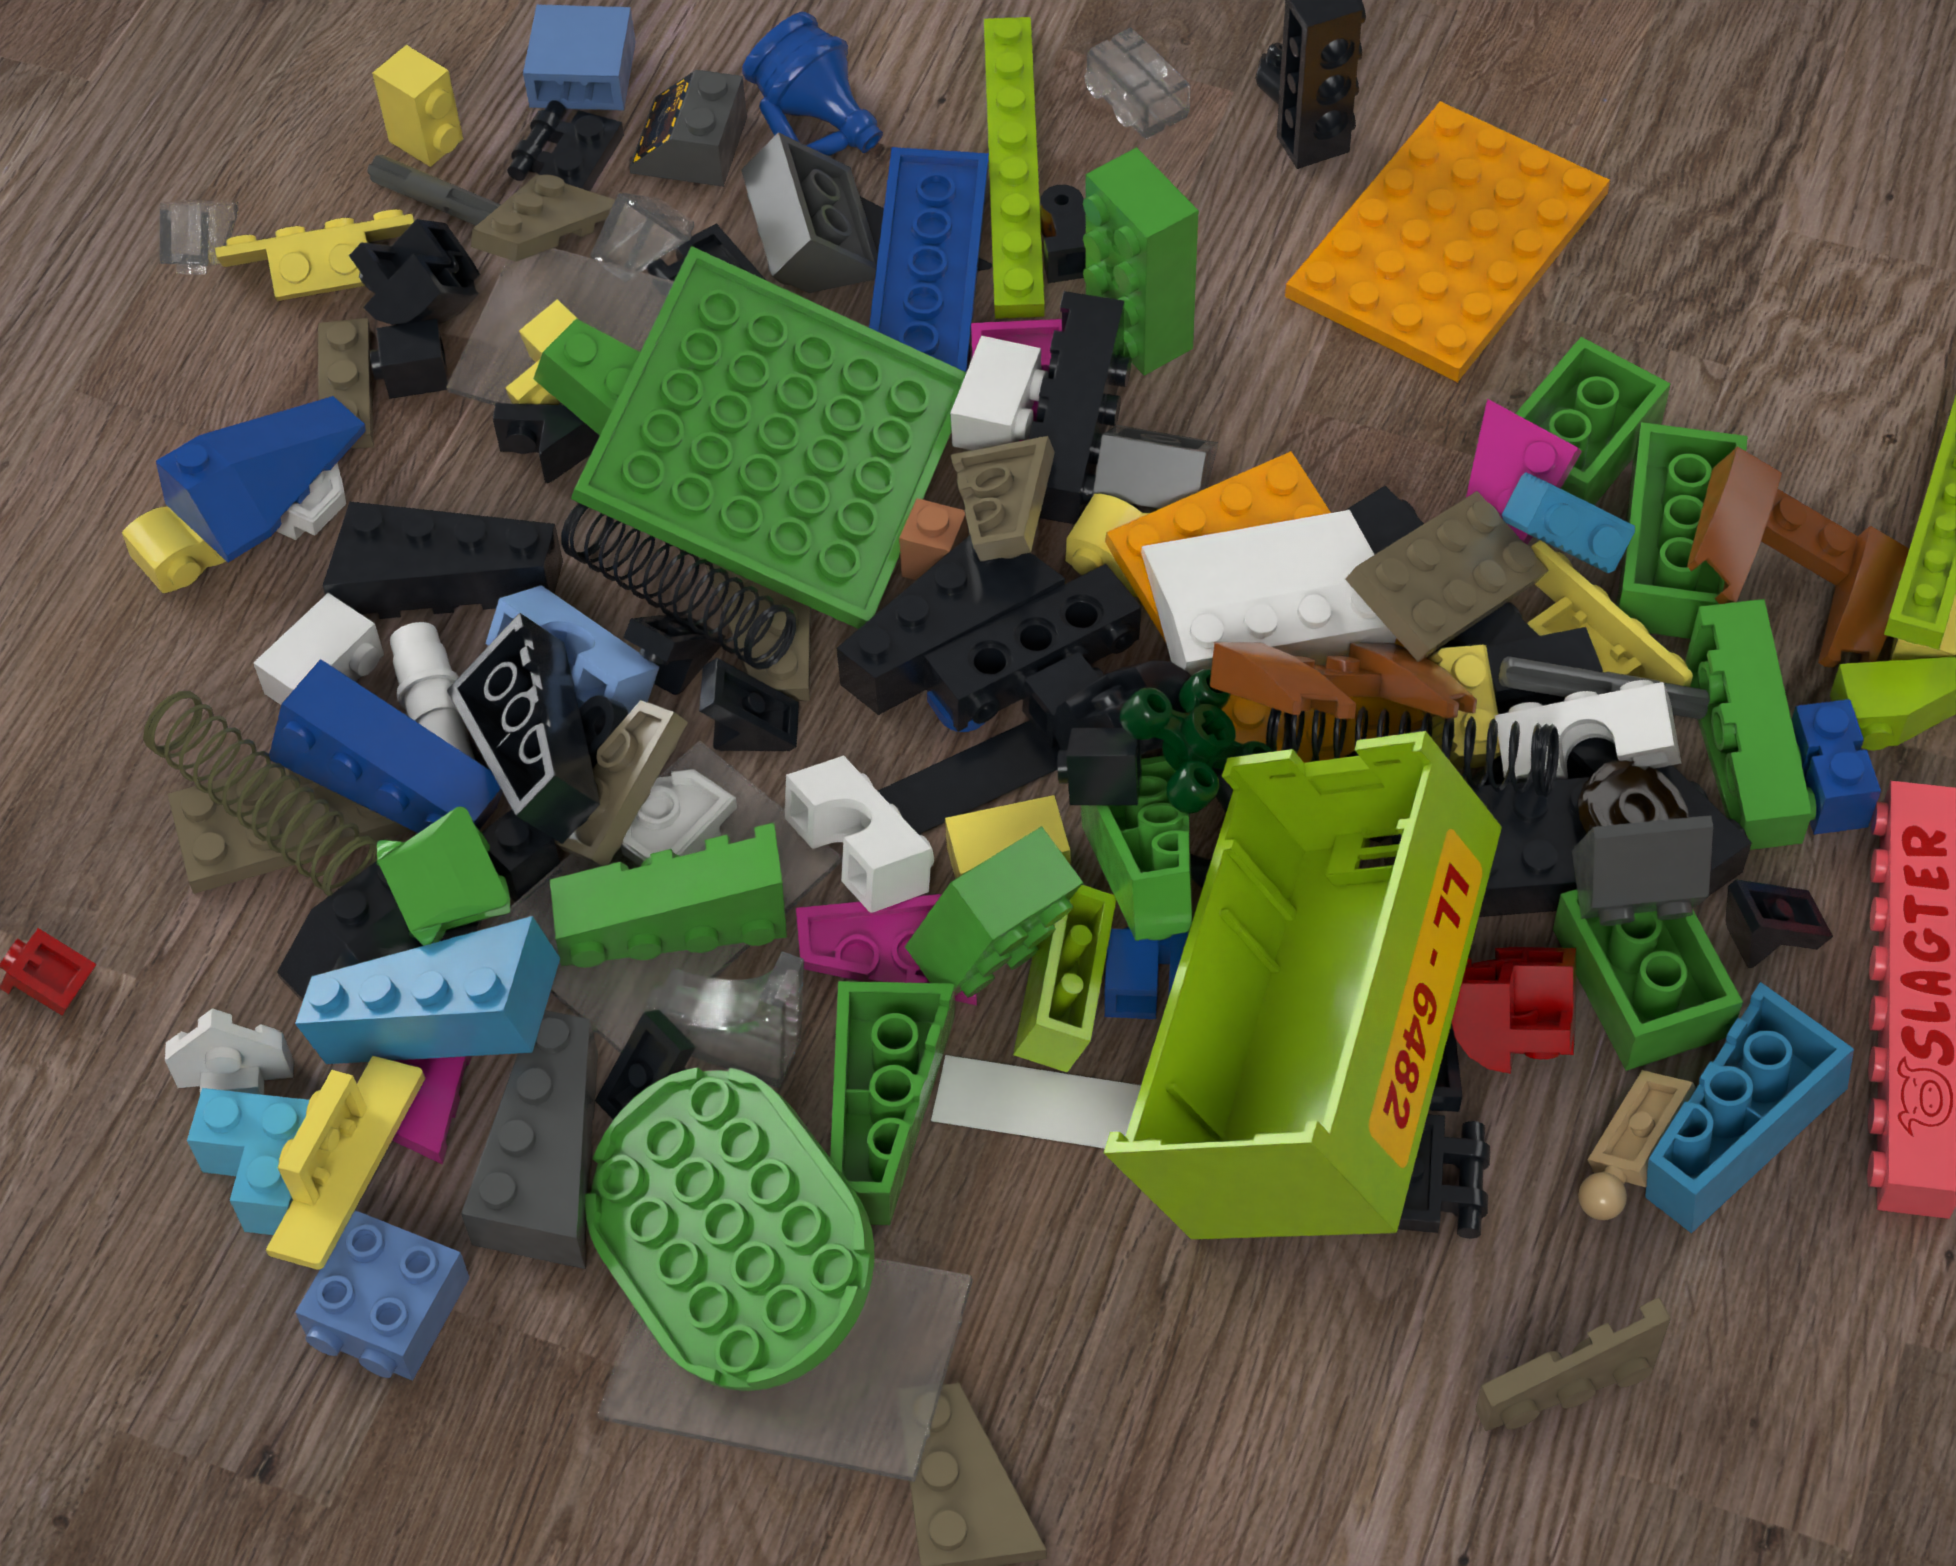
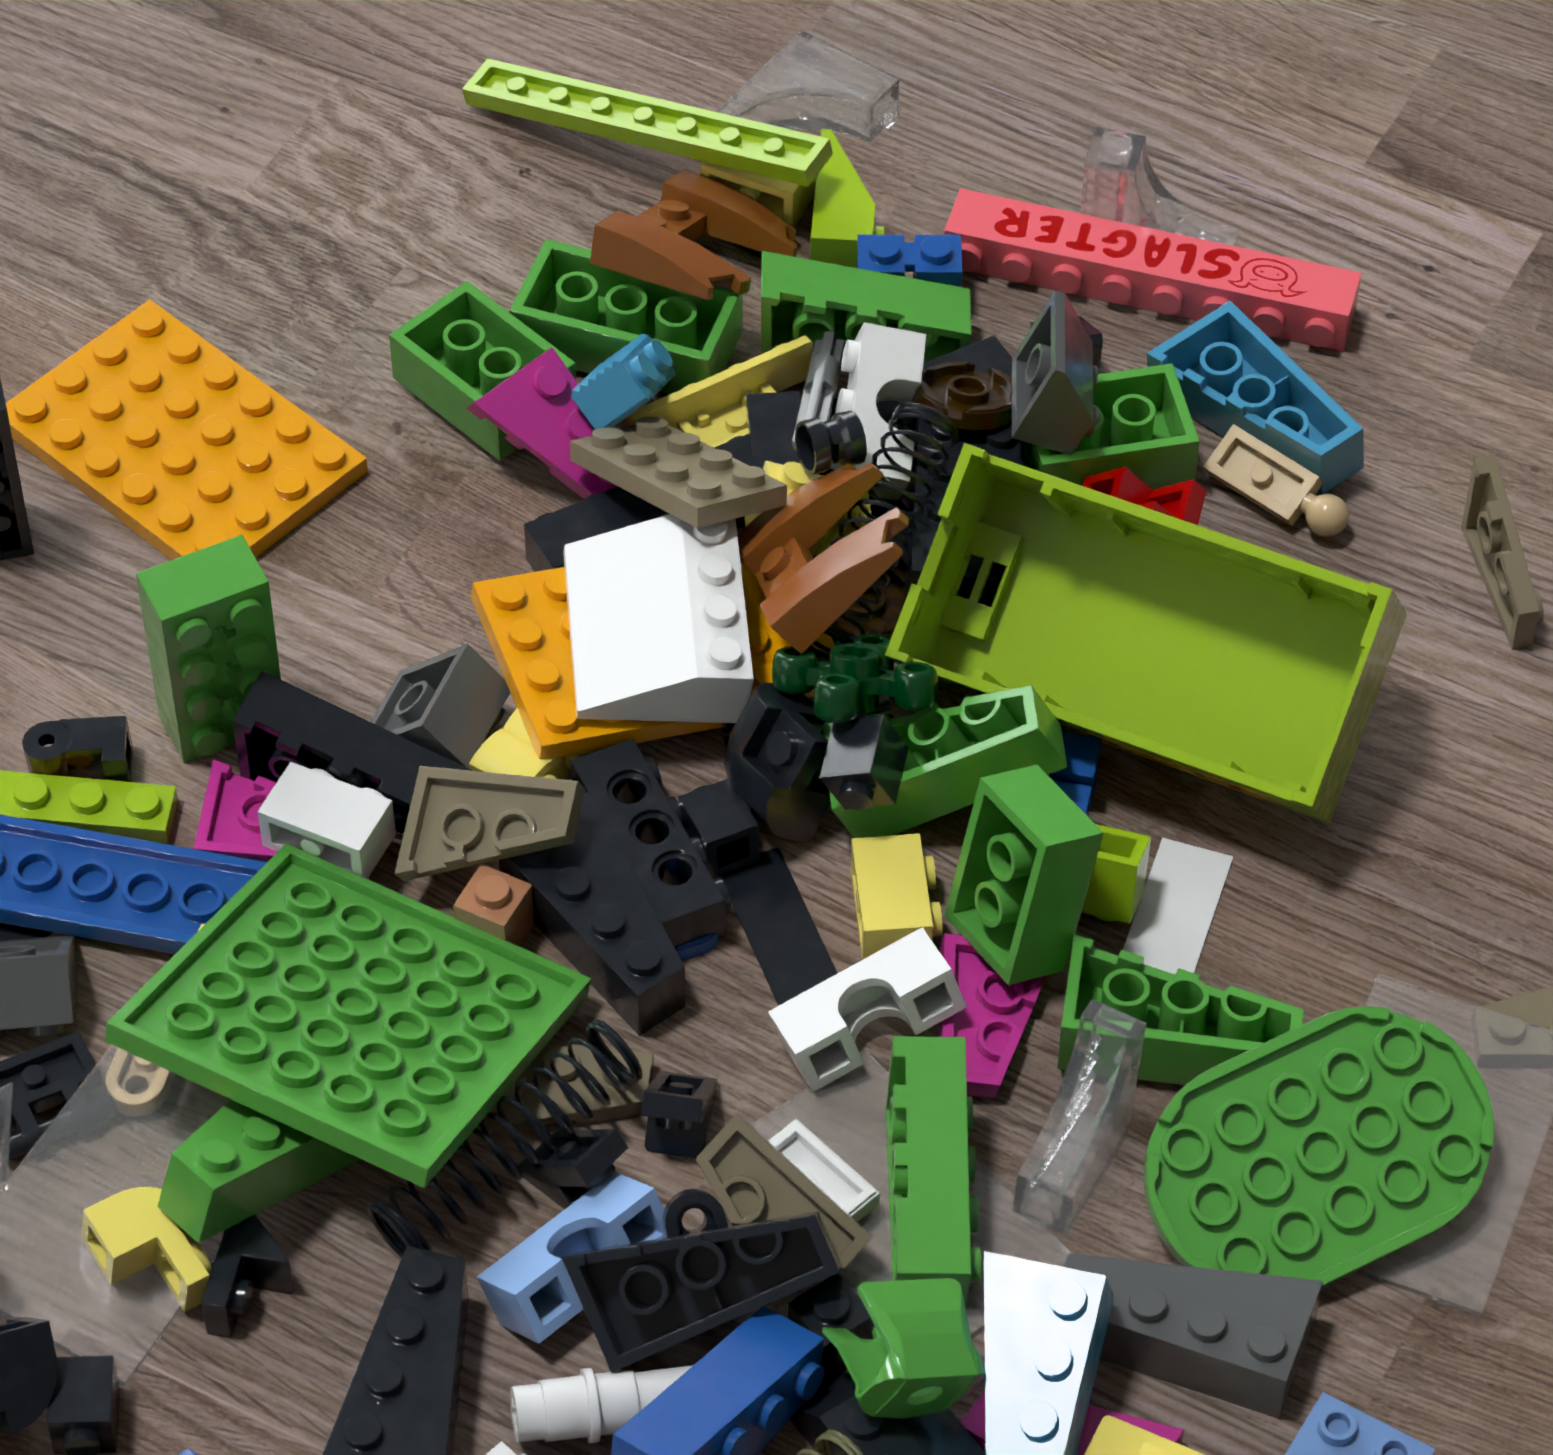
camera: 85 degrees left, 5 degrees down
(649, 1055) = (1118, 1215): black slope -> none
(1496, 678) = (830, 442): none -> black wheel

